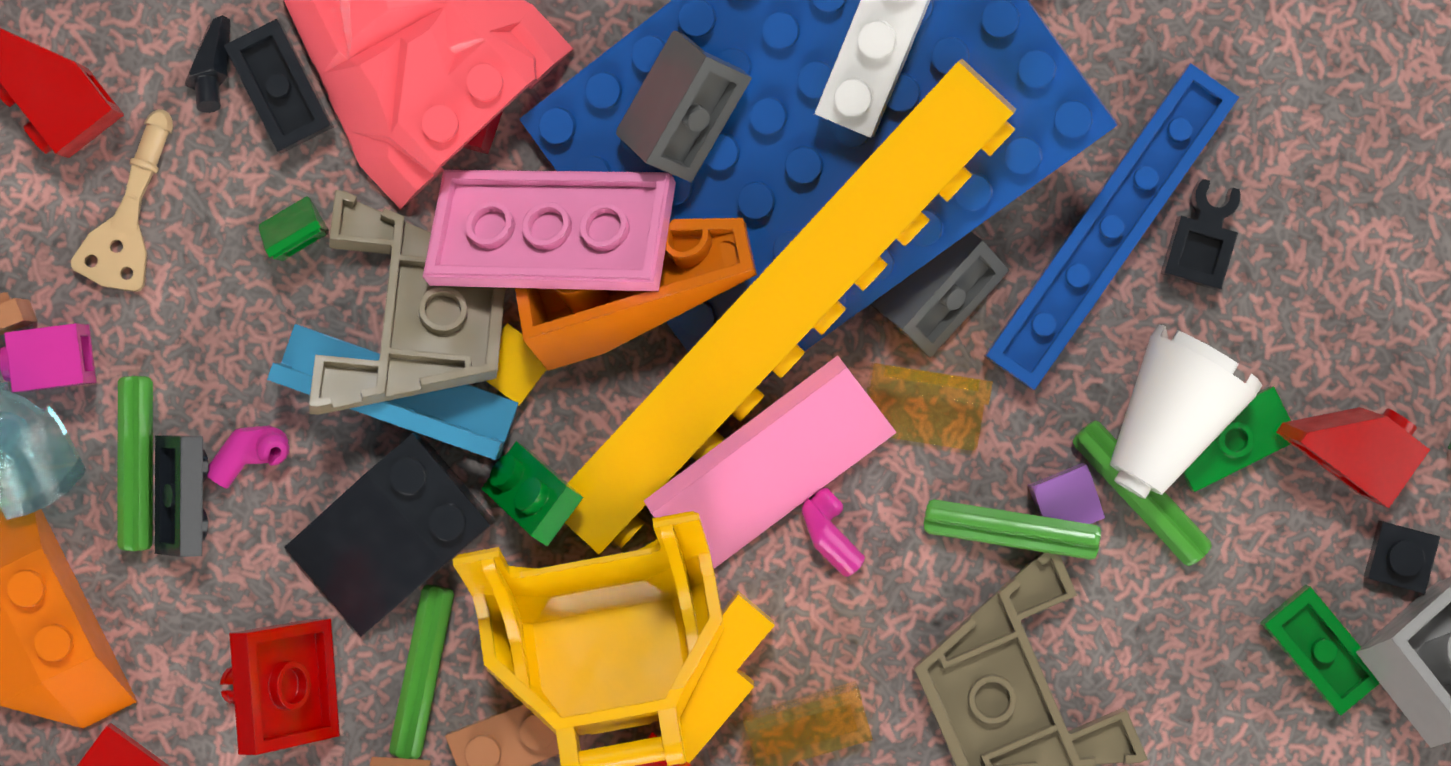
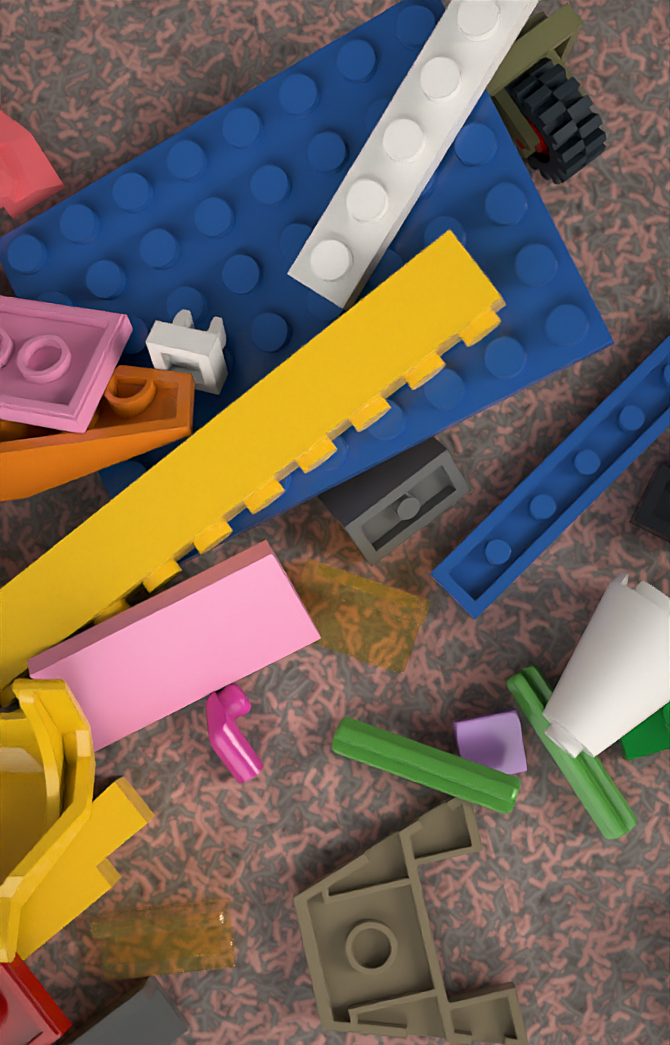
camera: 10 degrees right, 5 degrees down
(682, 107) = (152, 249): dark grey panel -> none
(737, 198) = (189, 350): none -> white tile

